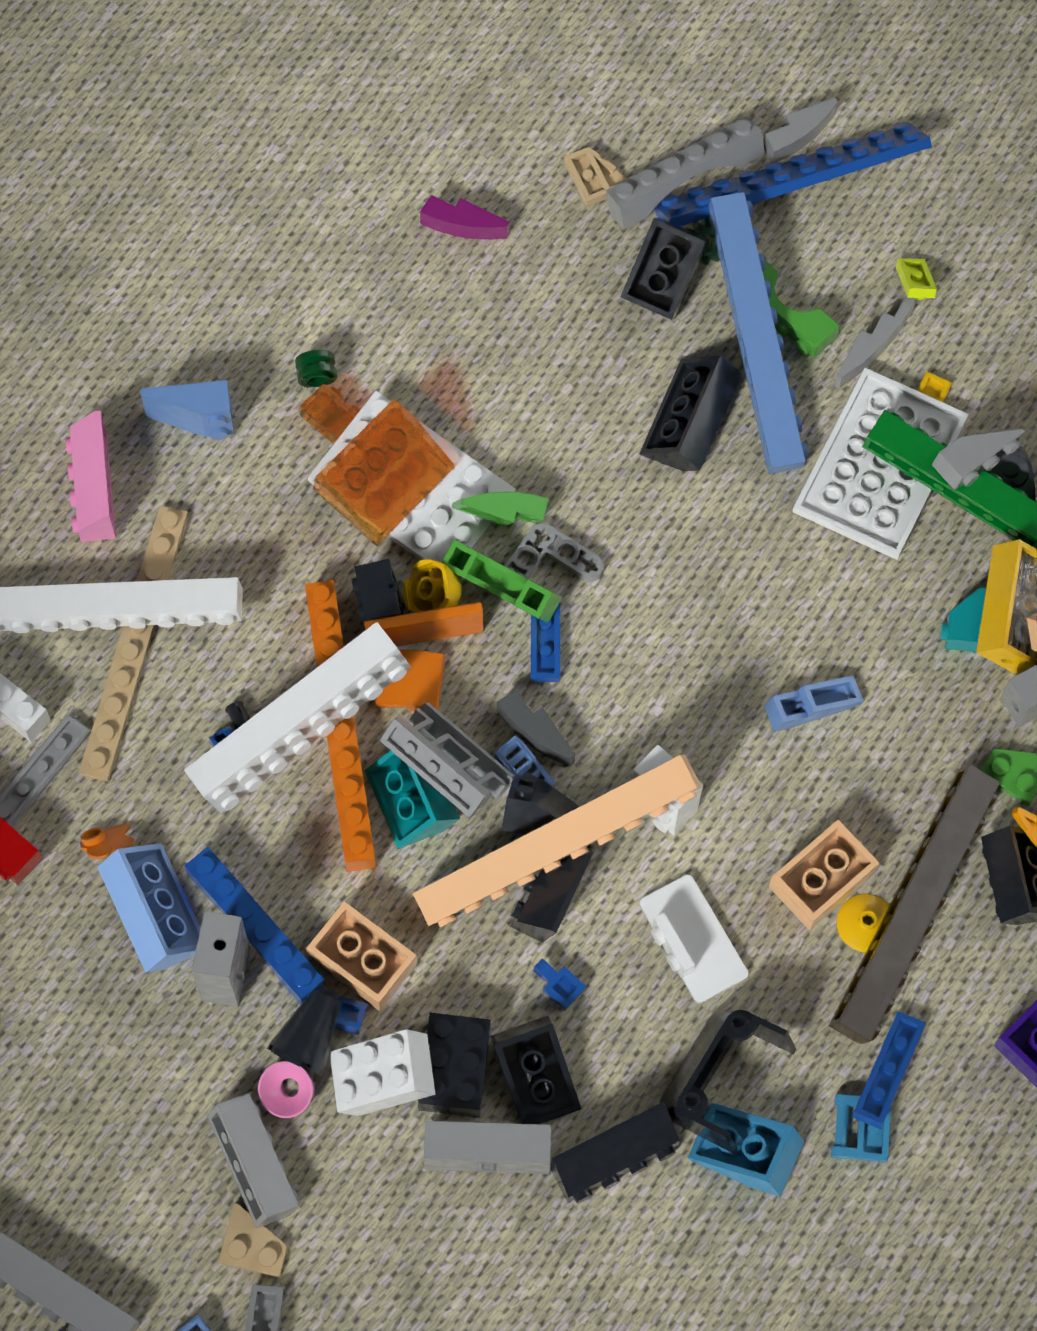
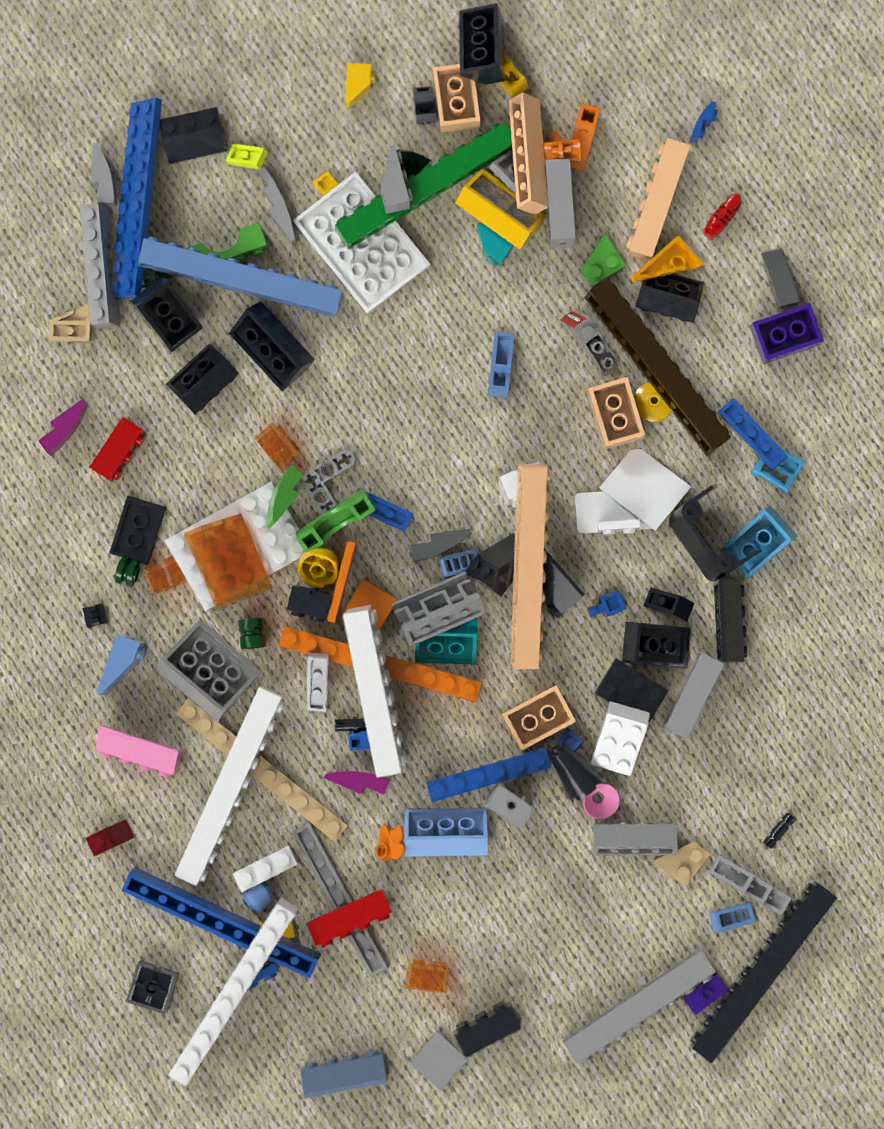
camera: 60 degrees left, 15 degrees up
(171, 766) = (359, 780): none -> magenta slope
(234, 519) = (208, 670): none -> light grey slope
(242, 358) = (94, 615): none -> black tile
(279, 654) = (317, 682): none -> tile
(298, 555) = (252, 633): none -> dark green wheel
(376, 361) = (137, 530): none -> black tile
(465, 292) = (118, 450): none -> red brick
(564, 476) = (277, 446): none -> clear orange brick
(600, 1064) = (669, 604): none -> black slope
(605, 352) = (202, 378): none -> black slope
(743, 961) = (645, 487): none -> white sticker
(902, 808) = (594, 345): none -> light grey slope
(909, 207) = (193, 135): none -> black slope
(921, 763) = (573, 319): none -> sticker

